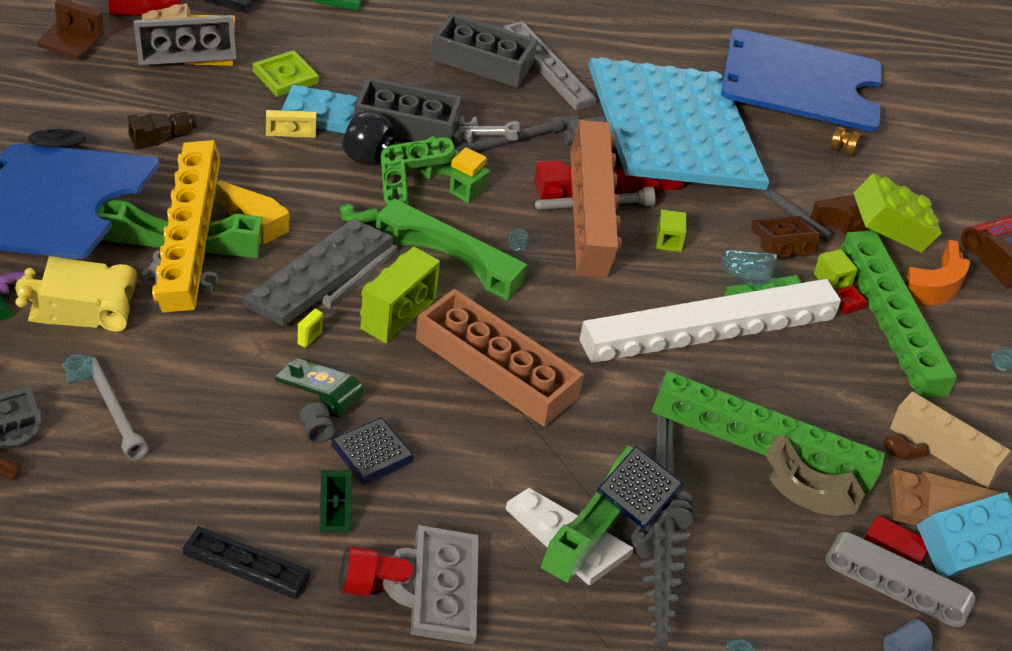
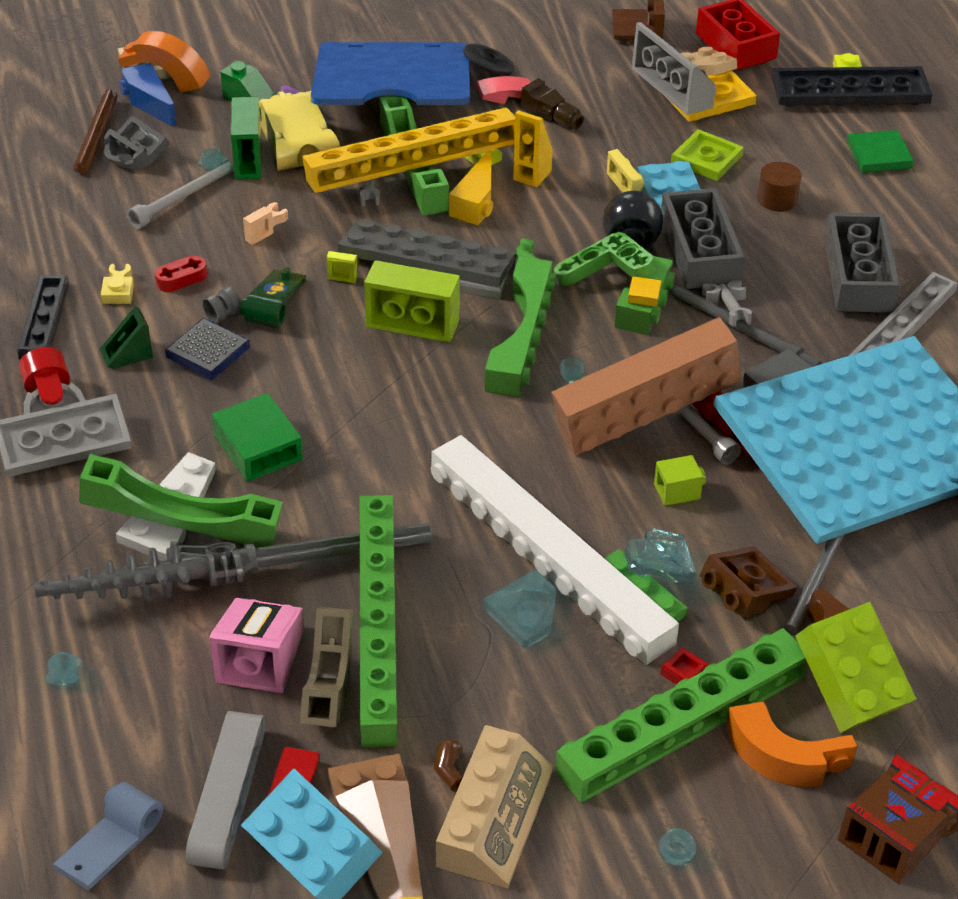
camera: 75 degrees right, 0 degrees up
(80, 325) = (246, 138): none -> green brick
(111, 140) = (499, 88): none -> coral slope
(210, 362) = (261, 222): none -> light nougat plate
(233, 495) = (117, 287): none -> light yellow plate
(237, 442) = (180, 273): none -> red beam
(241, 155) = (531, 150): none -> yellow slope
(362, 51) = (779, 186): none -> reddish brown piece
(499, 357) = (372, 393): nougat brick -> none
(510, 449) = (257, 437): none -> green brick
(639, 487) = (217, 517): tile -> none
(762, 513) = (256, 644): none -> bright pink slope
(763, 358) = (524, 608): none -> clear light blue plate
(836, 269) = (717, 637): lime brick -> none

